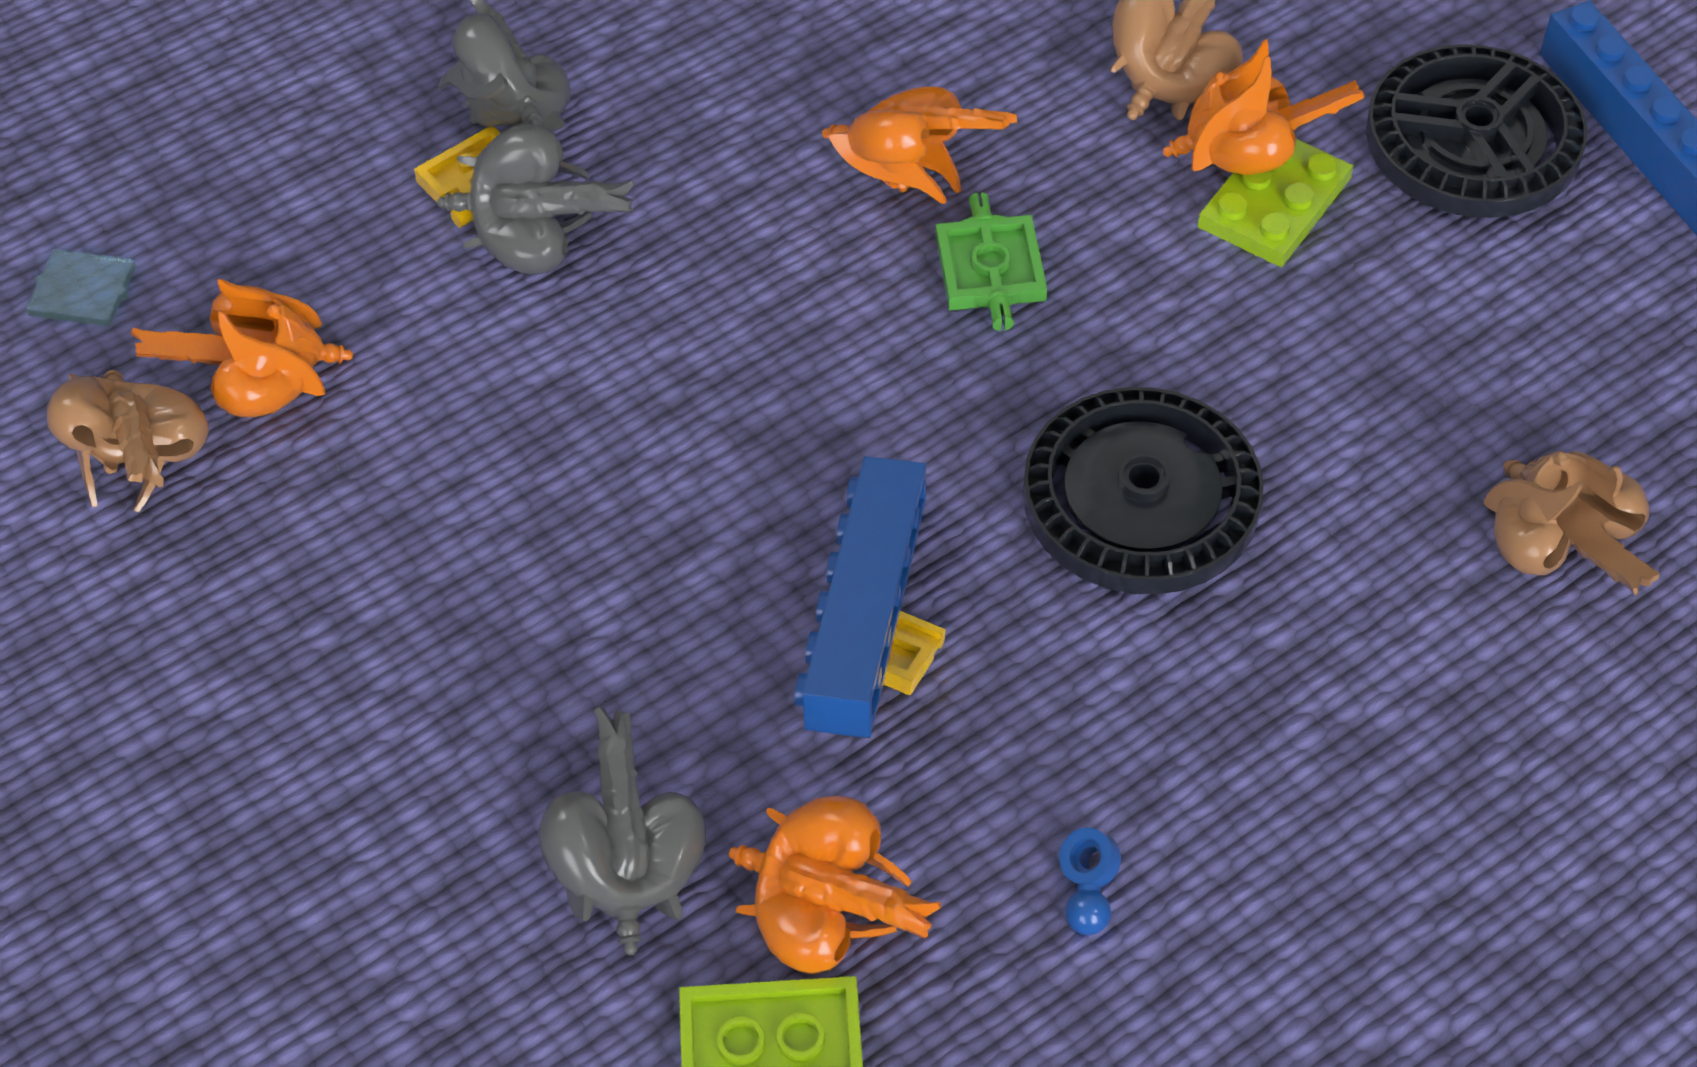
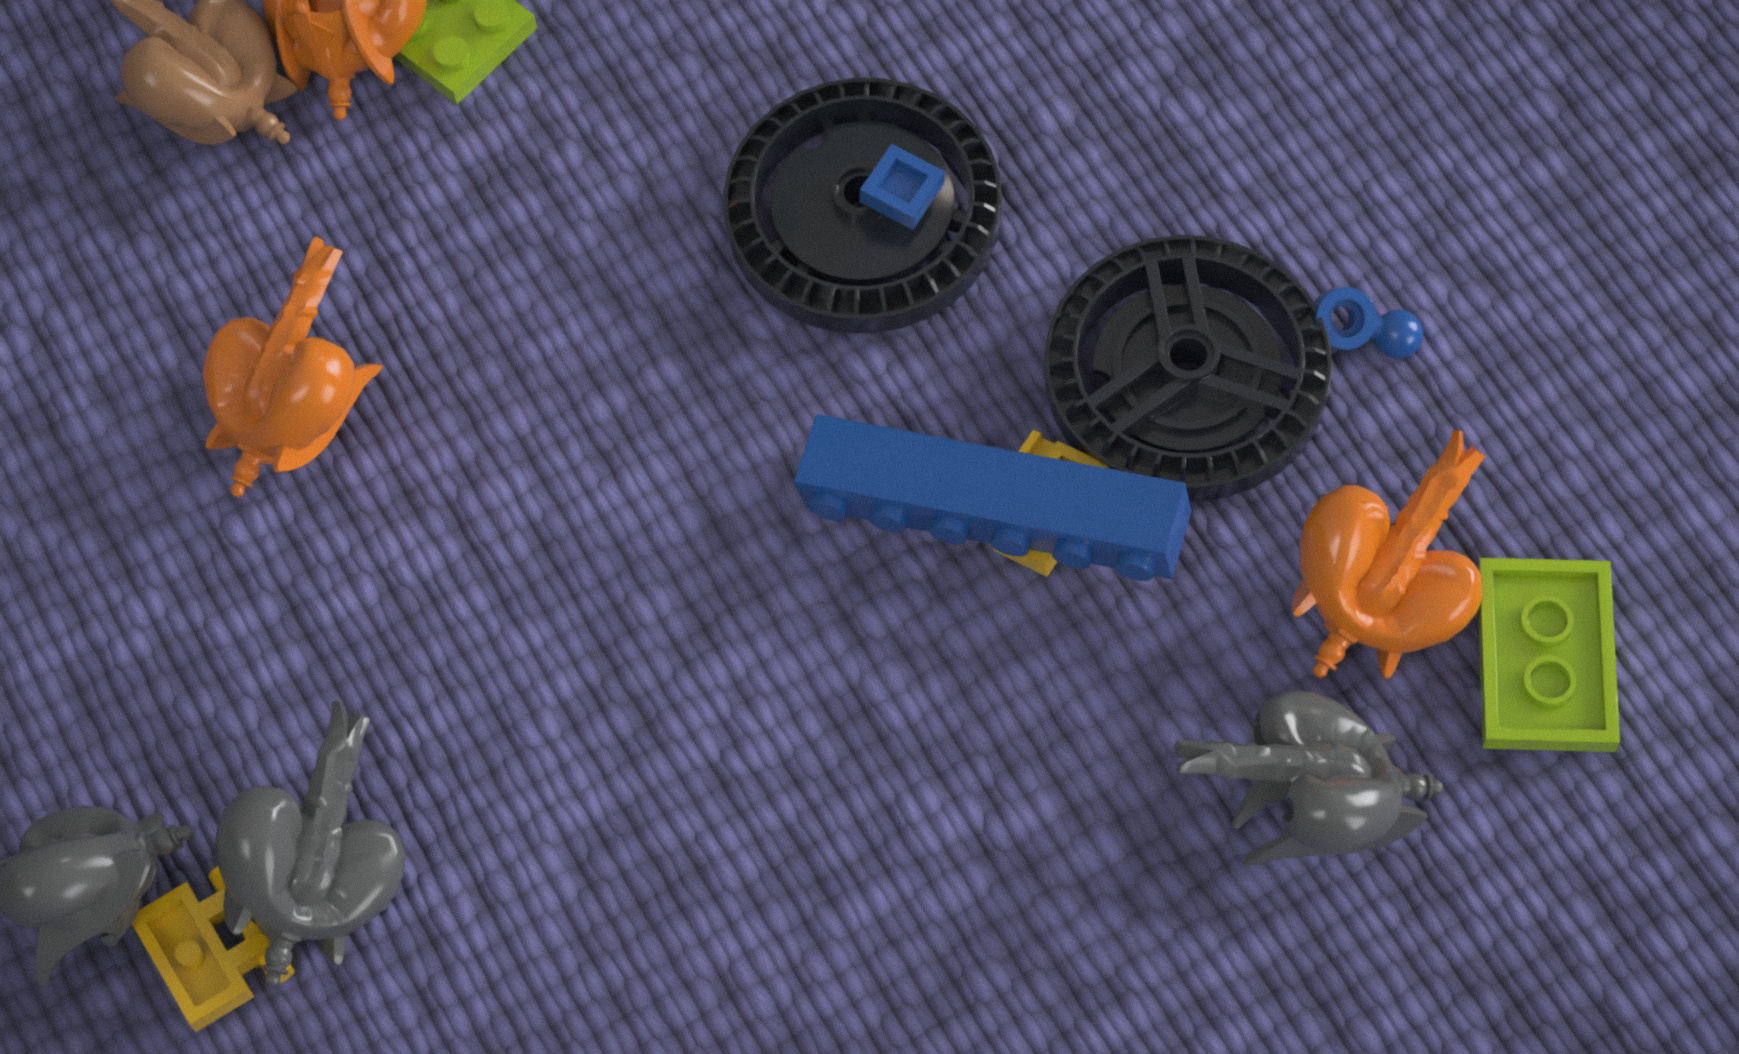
camera: 80 degrees left, 10 degrees up
(990, 262) = (486, 326): bright green plate -> none
(1015, 784) = (1182, 413): none -> black piece
(1140, 490) = (902, 186): none -> blue plate

